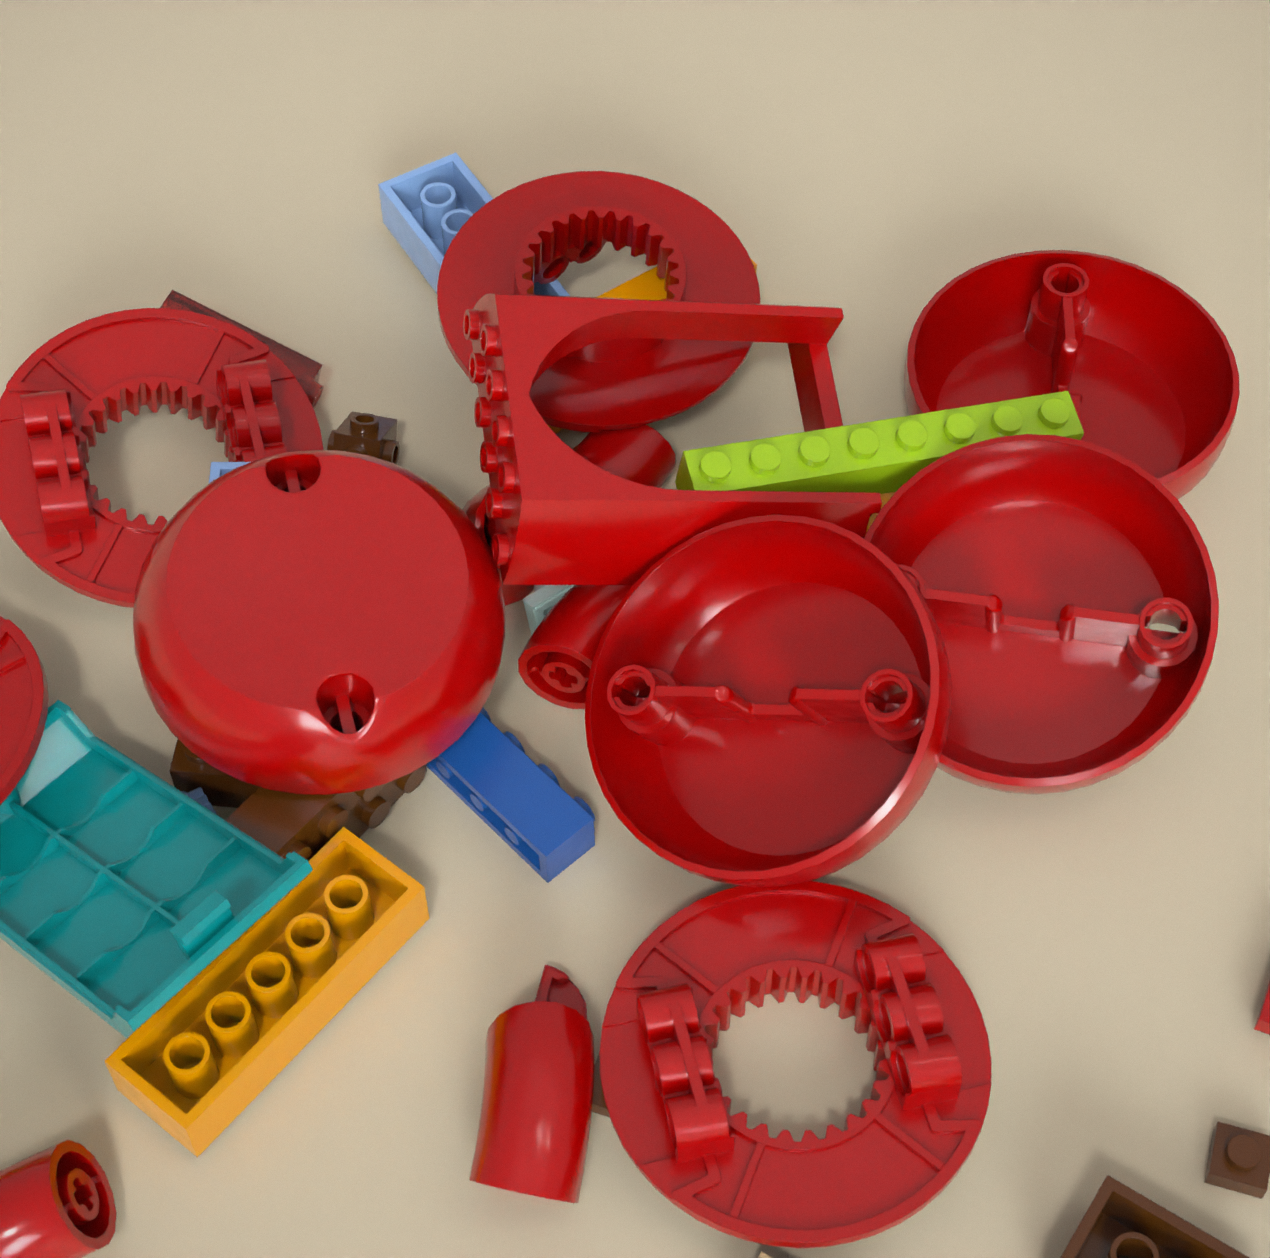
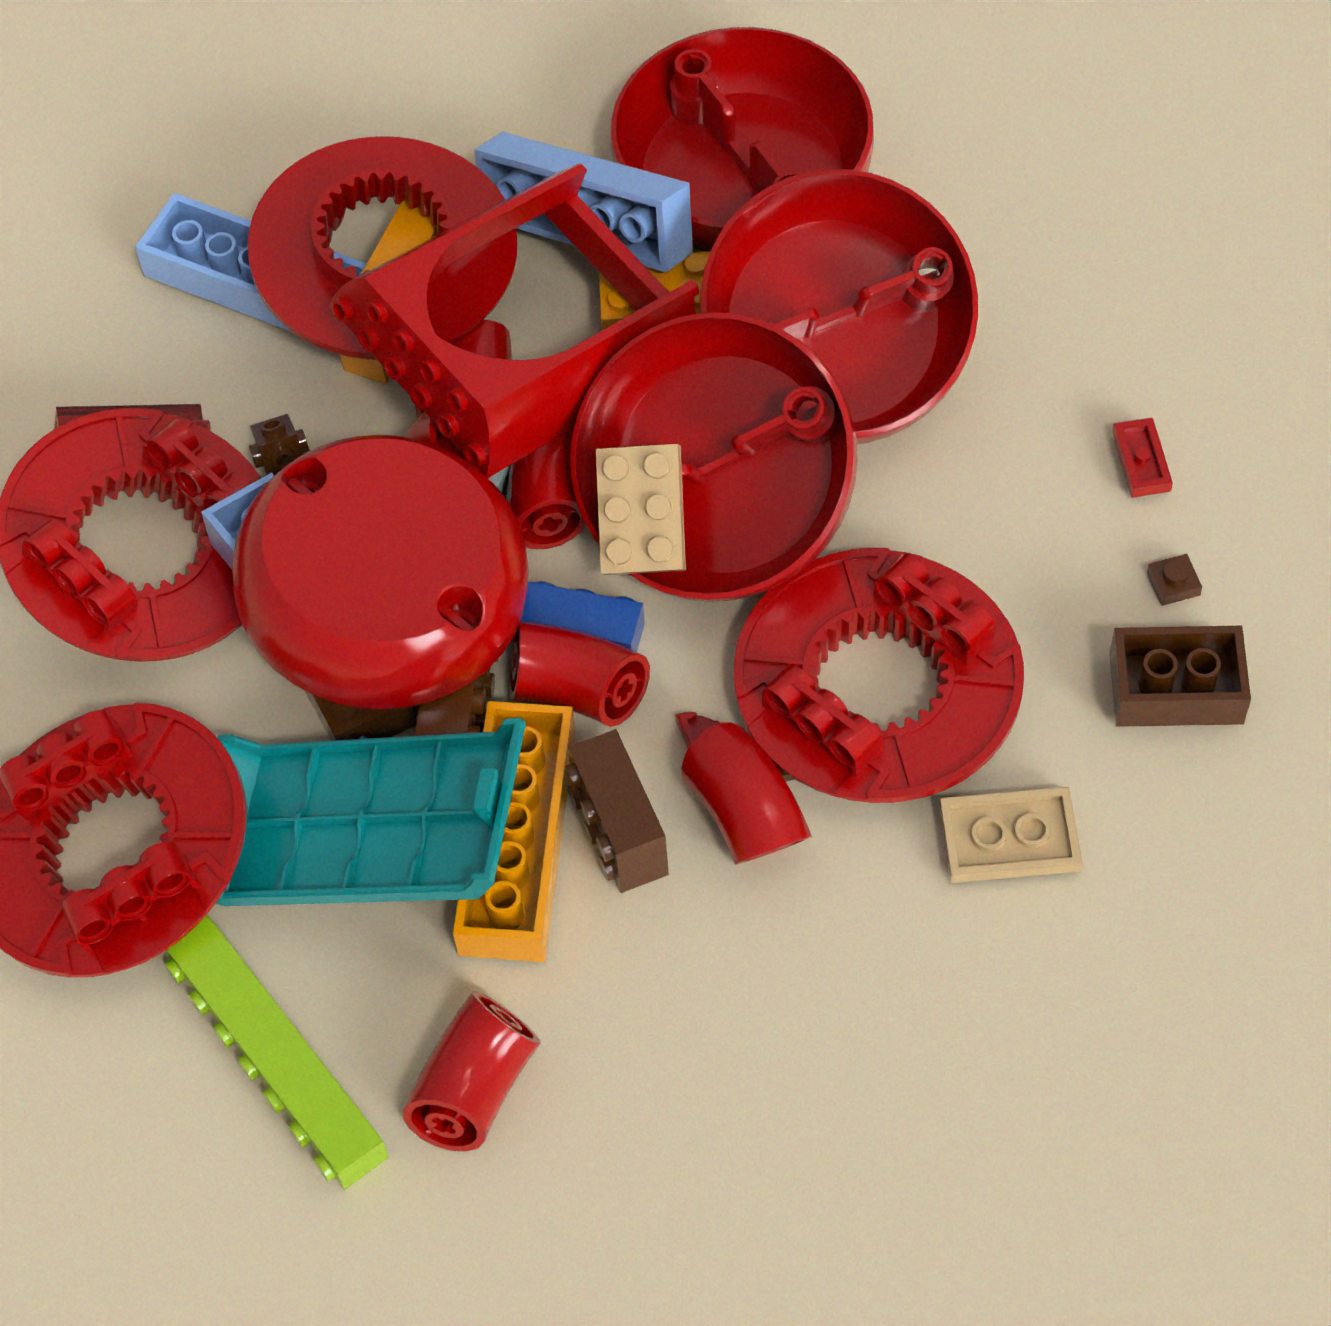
camera: 30 degrees left, 5 degrees up
(385, 1034) = (616, 811): none -> reddish brown brick
(467, 854) = (576, 671): none -> red brick
(646, 711) = (640, 509): none -> tan plate
(869, 361) = (638, 206): none -> light blue brick
(870, 454) = (667, 255): lime brick -> none

